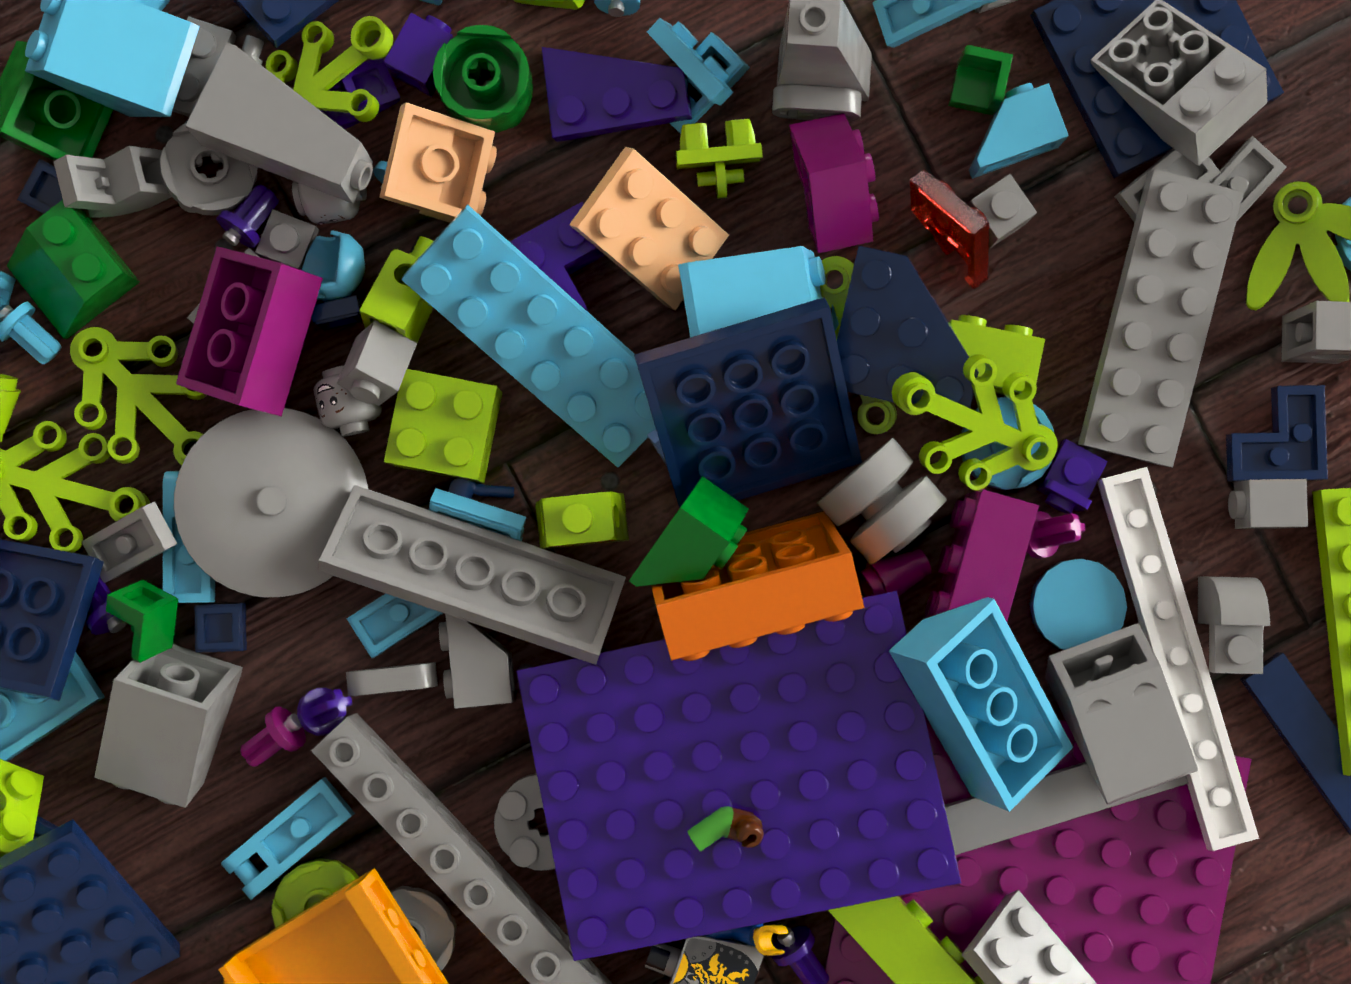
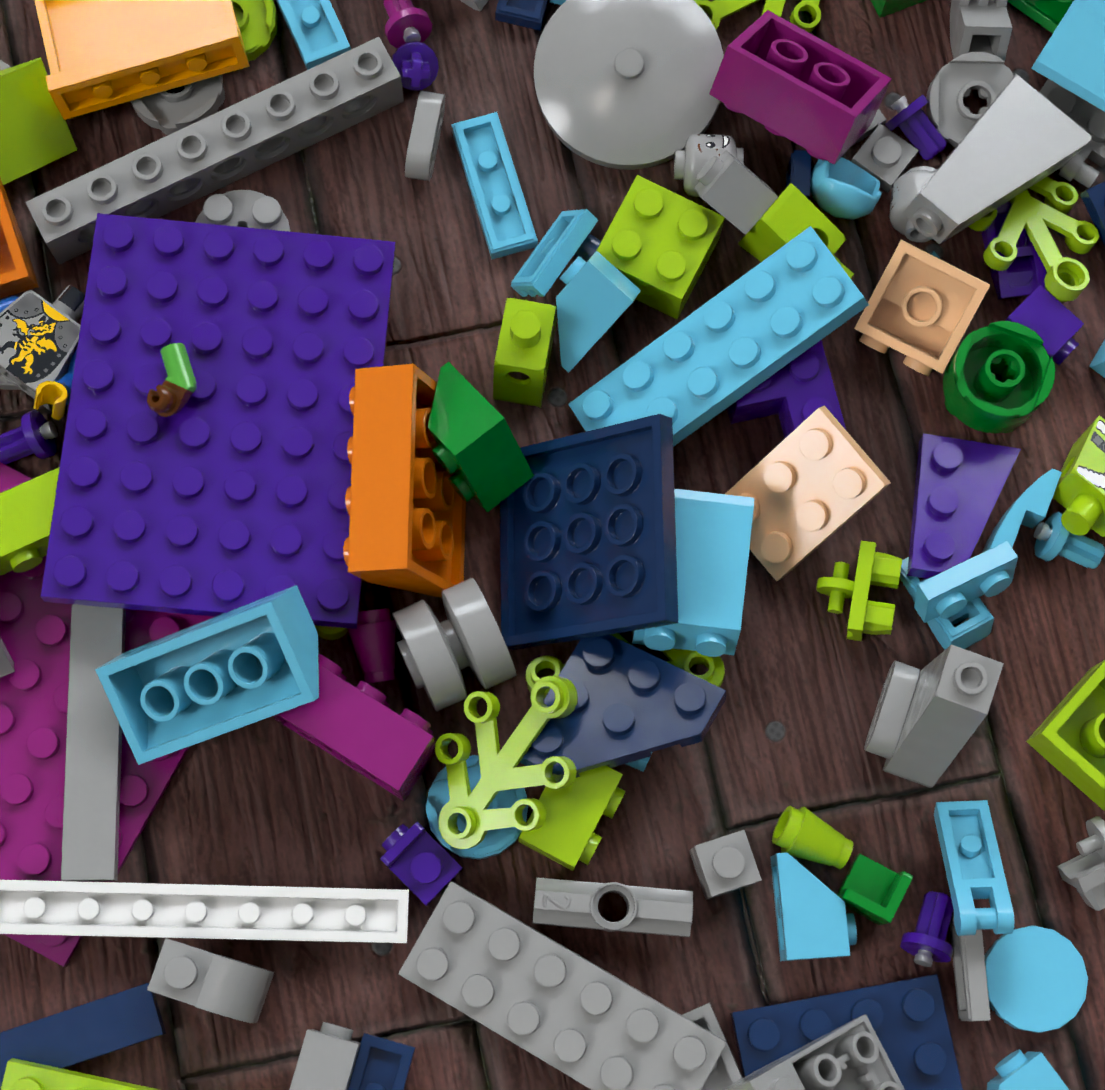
camera: 105 degrees right, 10 degrees down
(472, 574) = (501, 228): light grey plate -> none
(478, 664) = (417, 214): light grey slope -> none
(526, 467) = (590, 305): none -> medium azure slope
(592, 26) = (1026, 510): none -> medium azure slope
(834, 182) = (802, 693): magenta brick -> none
(951, 146) = (811, 838): none -> lime cone
(952, 224) = (717, 814): clear red wing -> none
(997, 23) = (931, 930): none -> dark purple piece
(1052, 532) = (369, 812): magenta piece -> none
(1057, 268) = (648, 908): none -> light grey piece
(1077, 603) = (283, 829): medium azure tile -> none
(1121, 713) = (155, 825): light grey slope -> none

